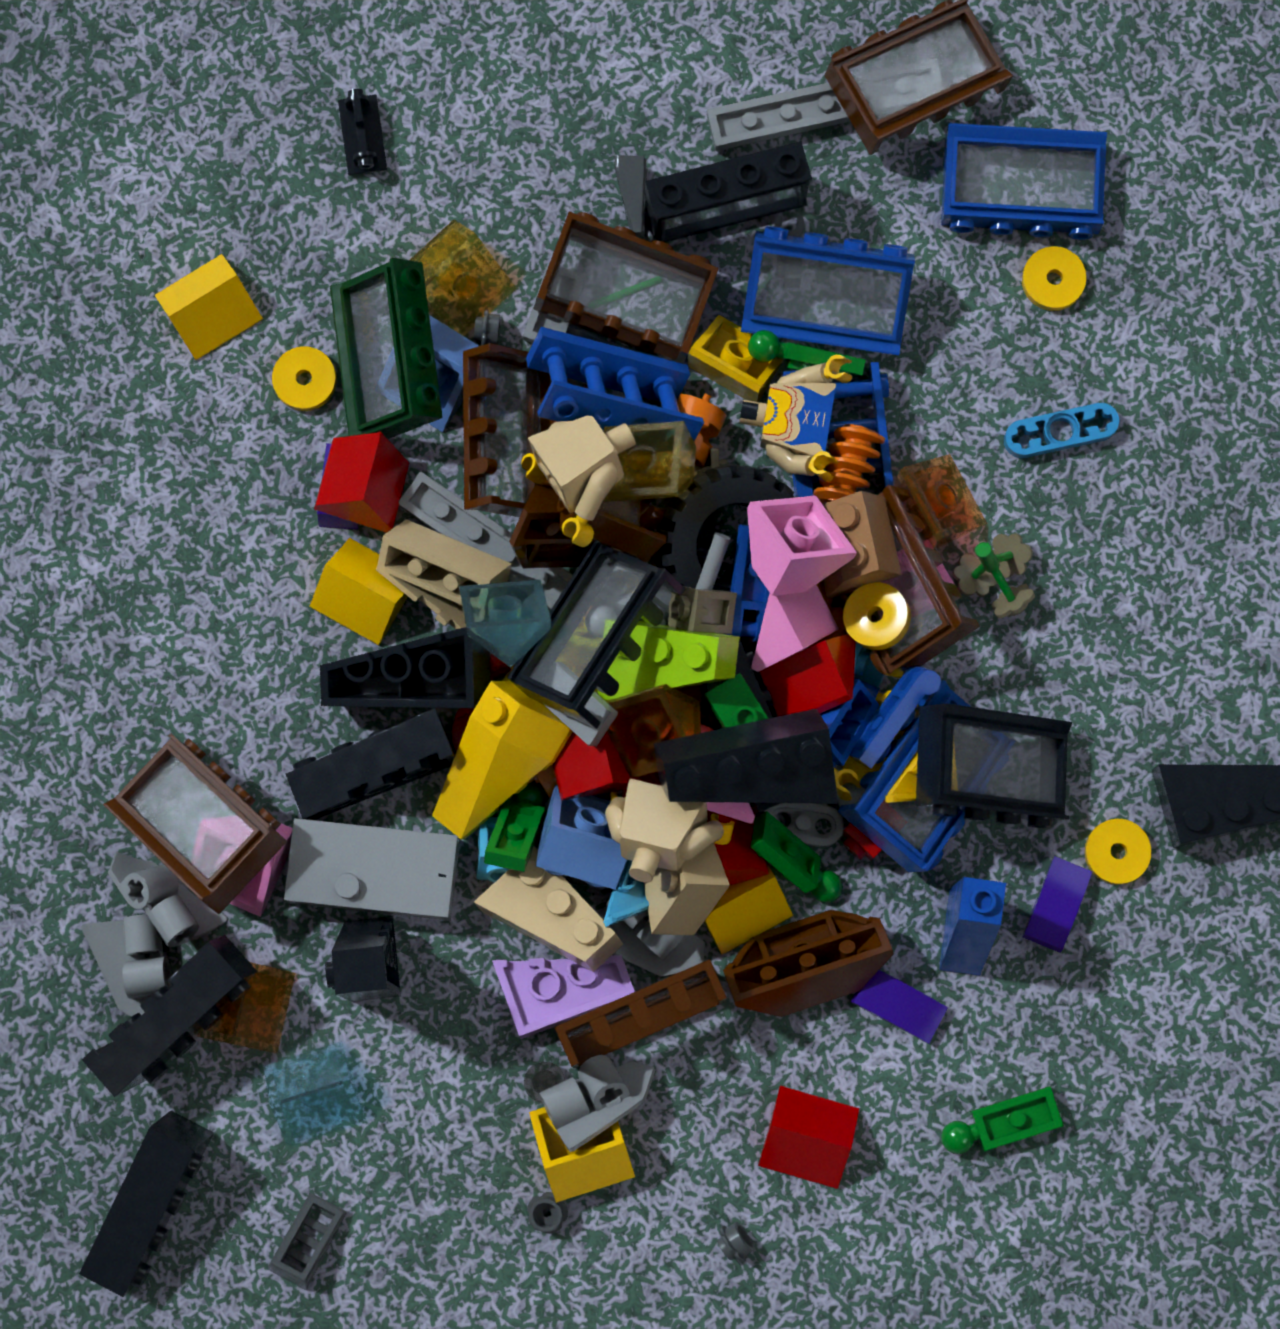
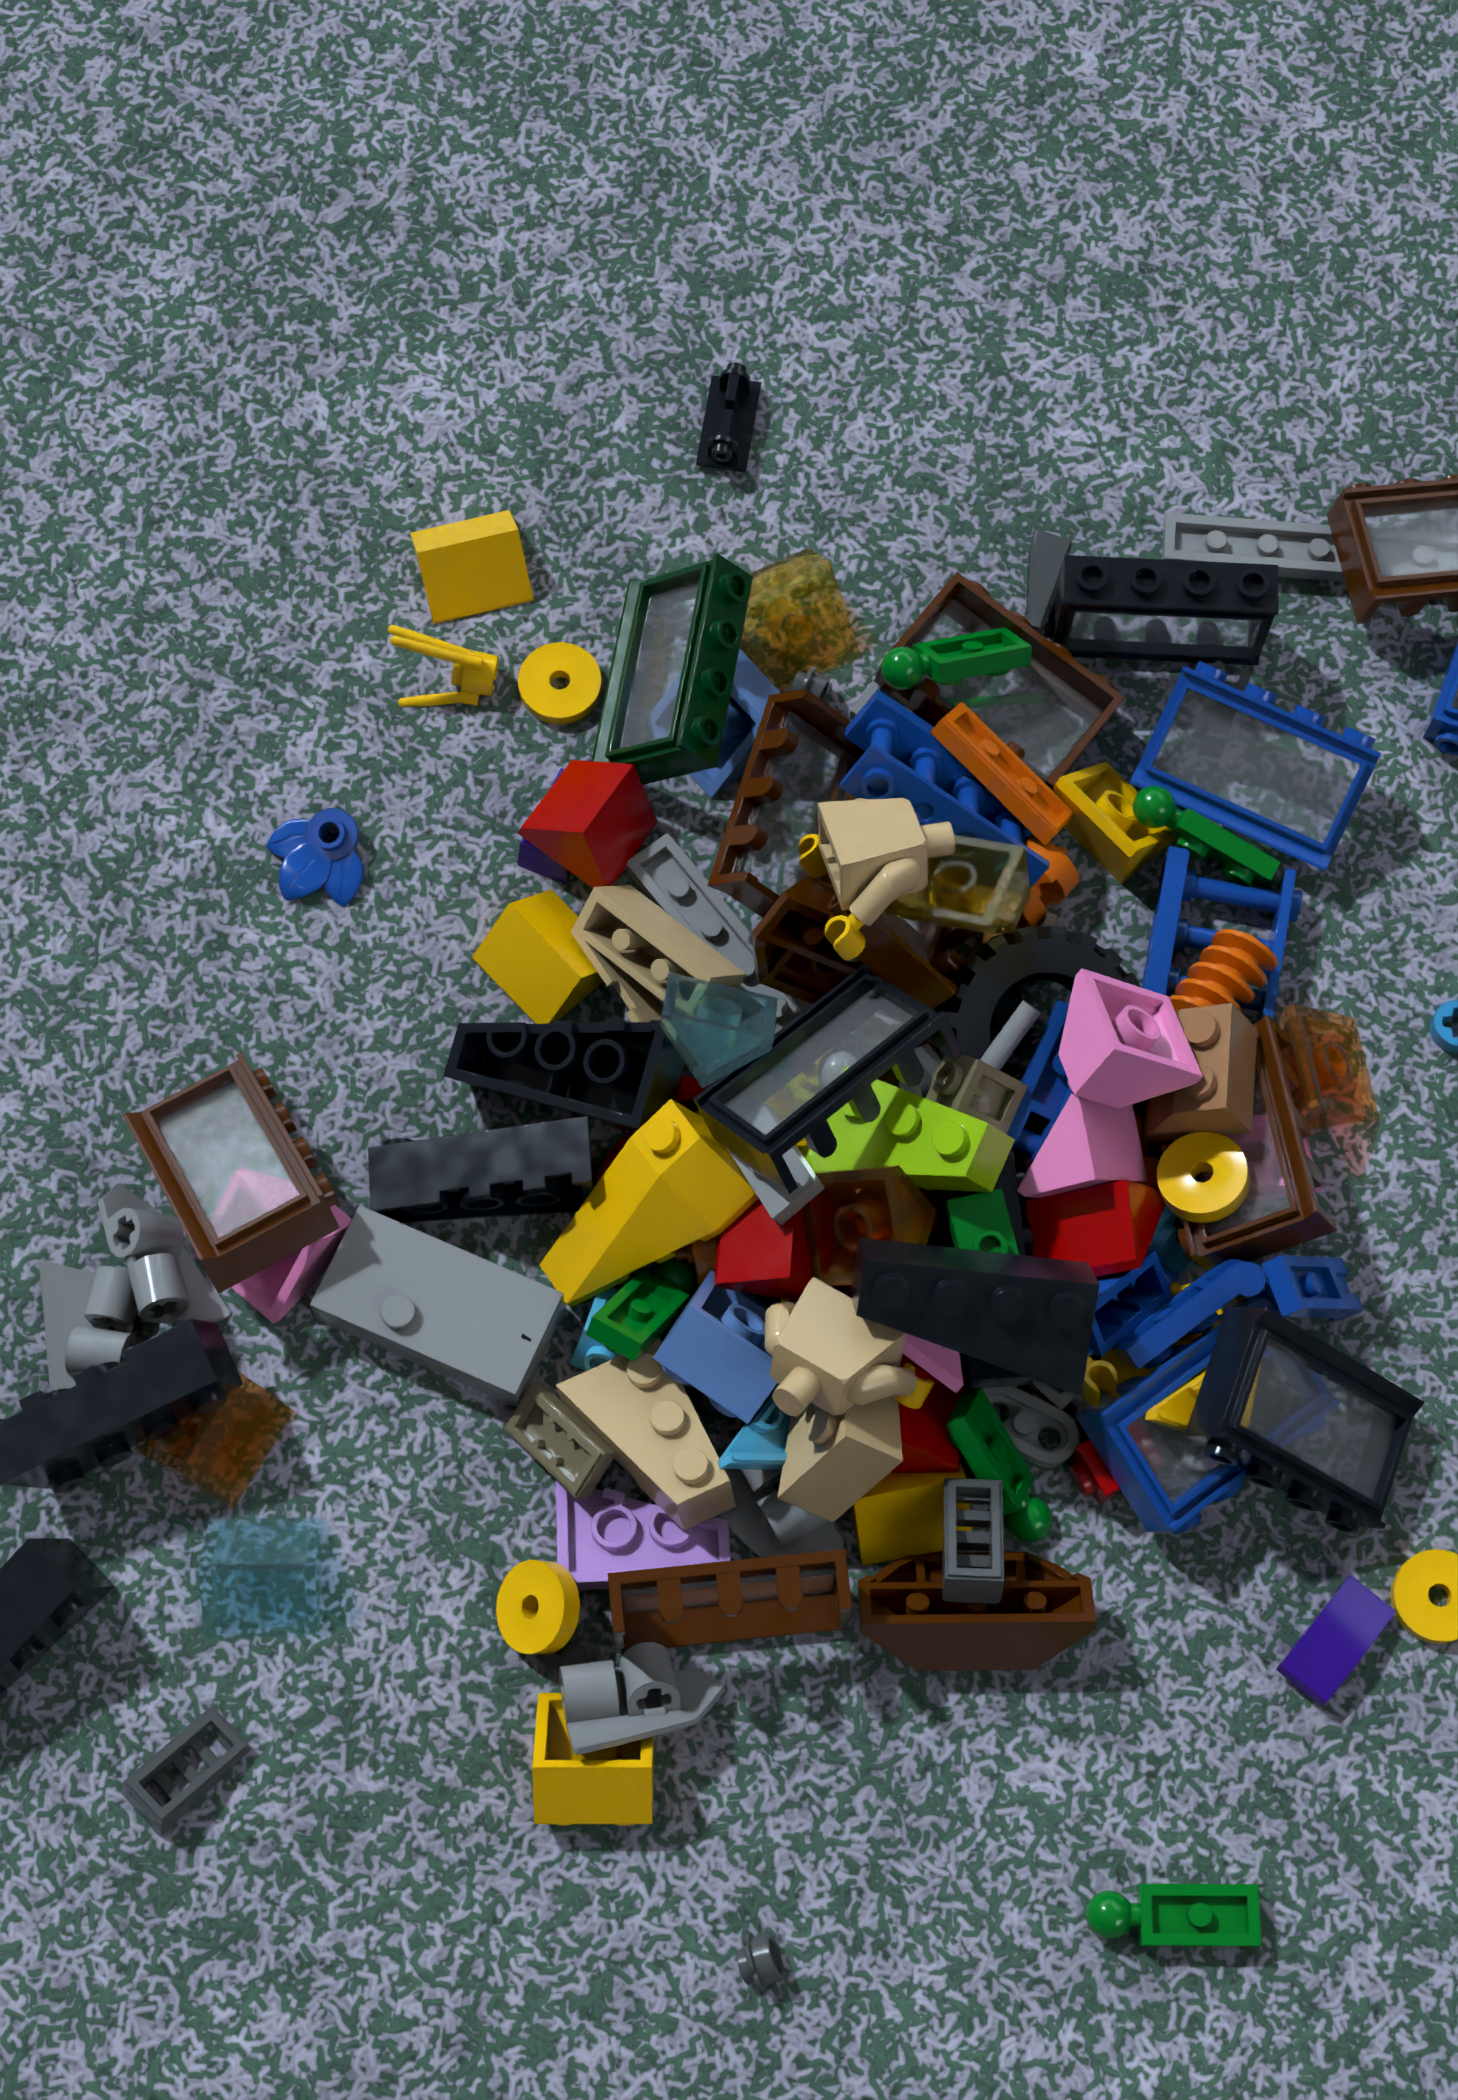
camera: 15 degrees right, 10 degrees down
(173, 572) = (317, 864): none -> blue plate
(237, 390) = (471, 668): none -> yellow plant
(365, 961) = (384, 1420): black wedge -> none
(488, 937) = (560, 1440): none -> dark tan plate
(525, 1053) = (558, 1607): none -> yellow piece
(544, 1223) = (503, 1842): dark grey plate -> none
(590, 279) = (956, 658): none -> green plate
(648, 357) = (1002, 773): none -> orange tile
(799, 418) = (1175, 900): torso -> none
(801, 944) = (972, 1576): none -> dark grey slope
(809, 1137) = (904, 1849): red slope -> none
(901, 1006) = (1083, 1708): dark purple slope -> none
(971, 924) = (1214, 1620): blue slope -> none
(972, 668) = (1310, 1287): none -> blue plate
(993, 567) = (1392, 1168): dark tan plant -> none

